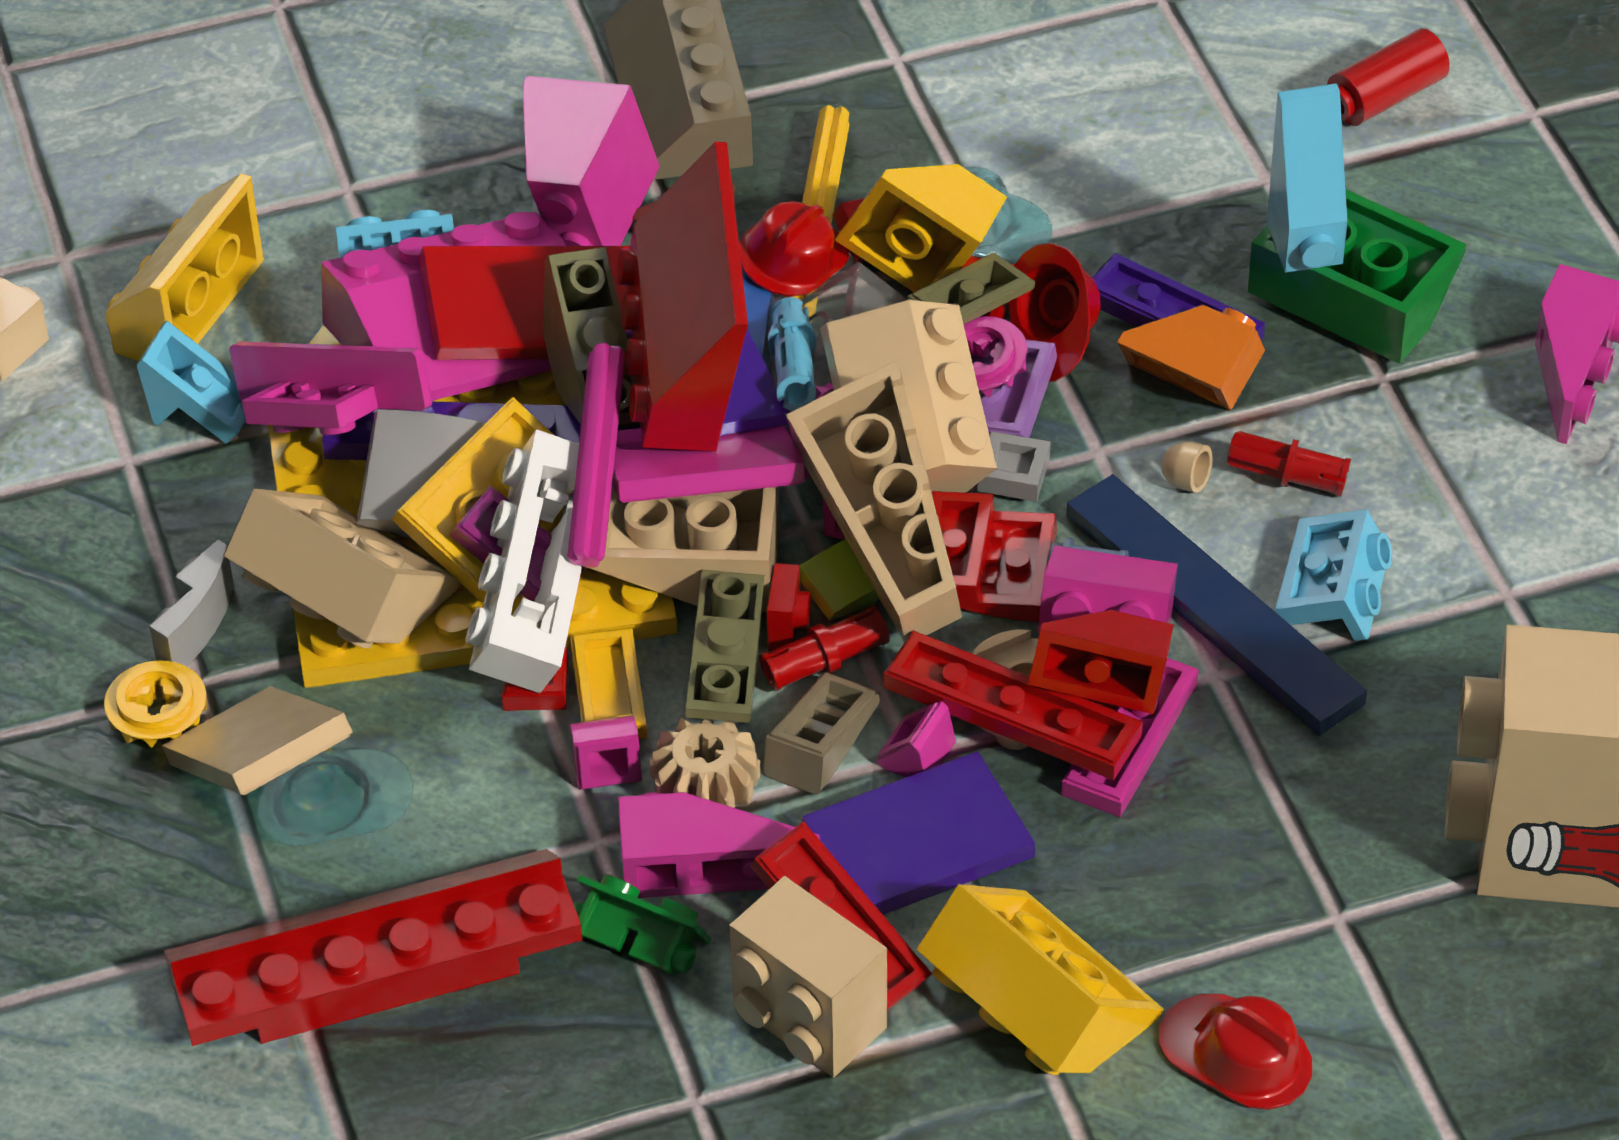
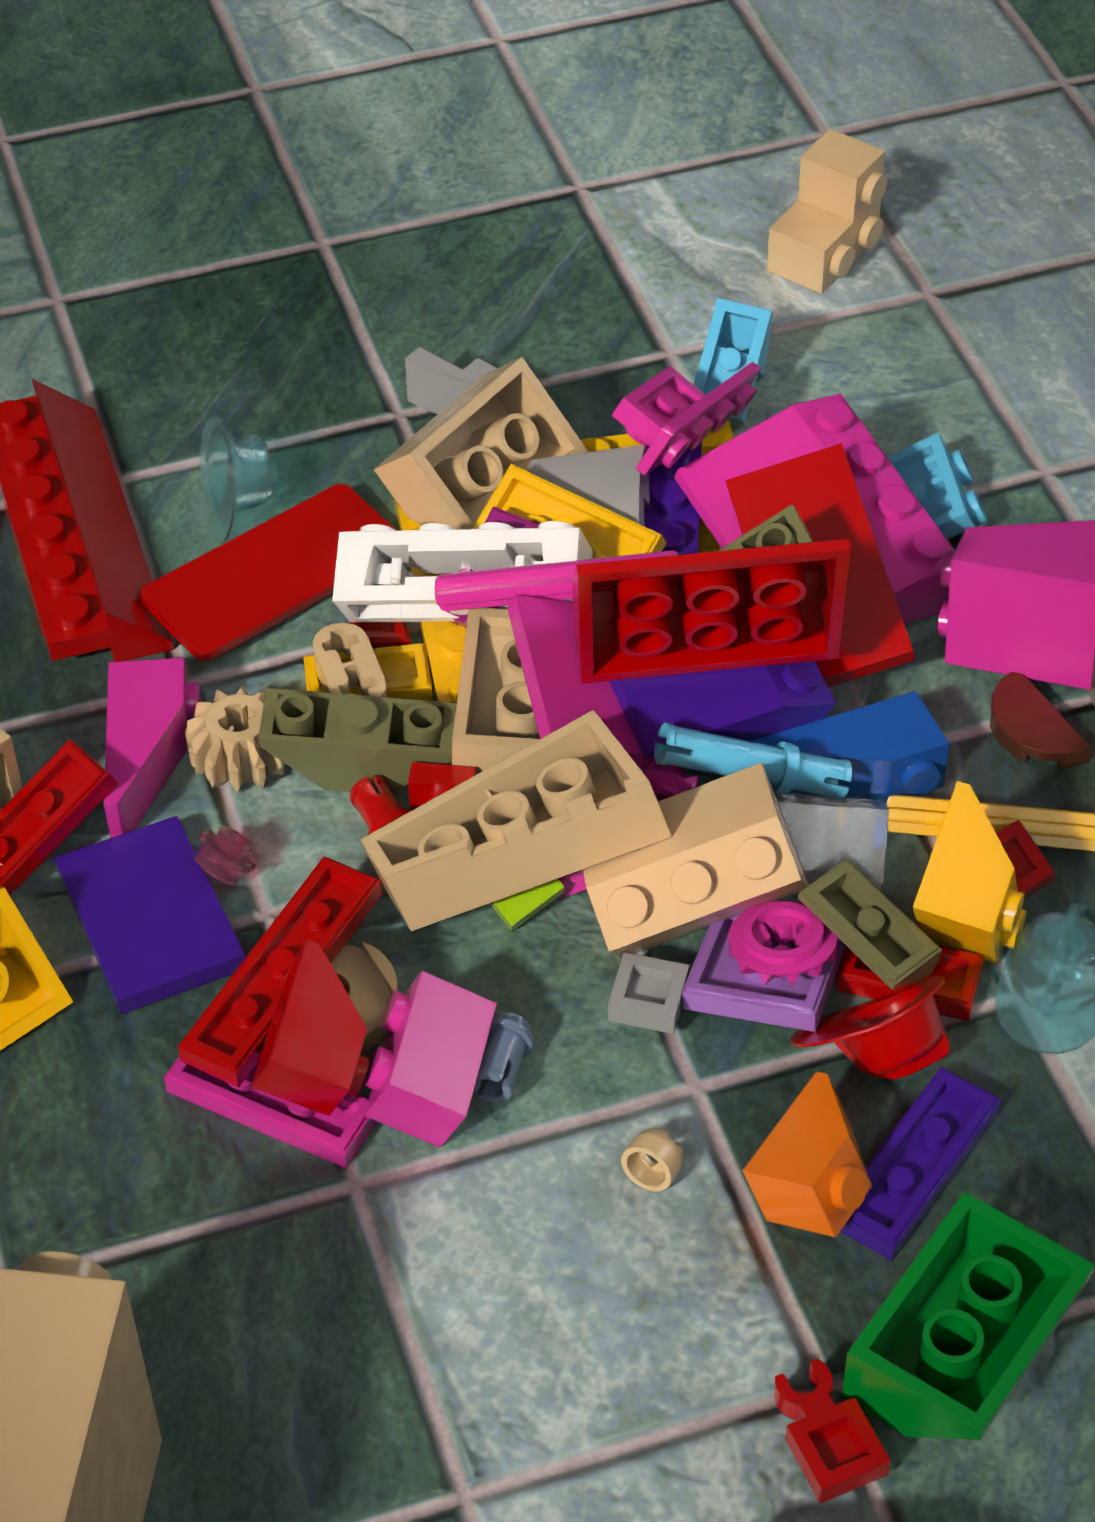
camera: 90 degrees right, 0 degrees up
(137, 688) = (346, 371): yellow gear -> none
(192, 271) = (871, 351): yellow slope -> none
(257, 740) = (278, 419): tan tile -> none
(461, 764) = (258, 575): none -> red piece
(606, 752) = (274, 659): dark pink brick -> none
(628, 678) = (360, 671): none -> tan beam
(662, 931) = (68, 702): green hinge -> none
(792, 249) = (919, 767): red piece -> none
(816, 737) = (288, 809): dark tan slope -> none
(857, 770) = (225, 855): none -> clear pink plate
(919, 741) = (253, 907): dark pink slope -> none
(995, 554) = (527, 961): red slope -> none
(1222, 607) = (445, 1183): dark blue tile -> none
(1288, 462) = (656, 1261): red axle -> none
(1308, 179) = (980, 1194): medium azure slope -> none
(1336, 571) = (475, 1298): medium azure bracket -> none
(1443, 360) = (830, 1440): none -> red plate

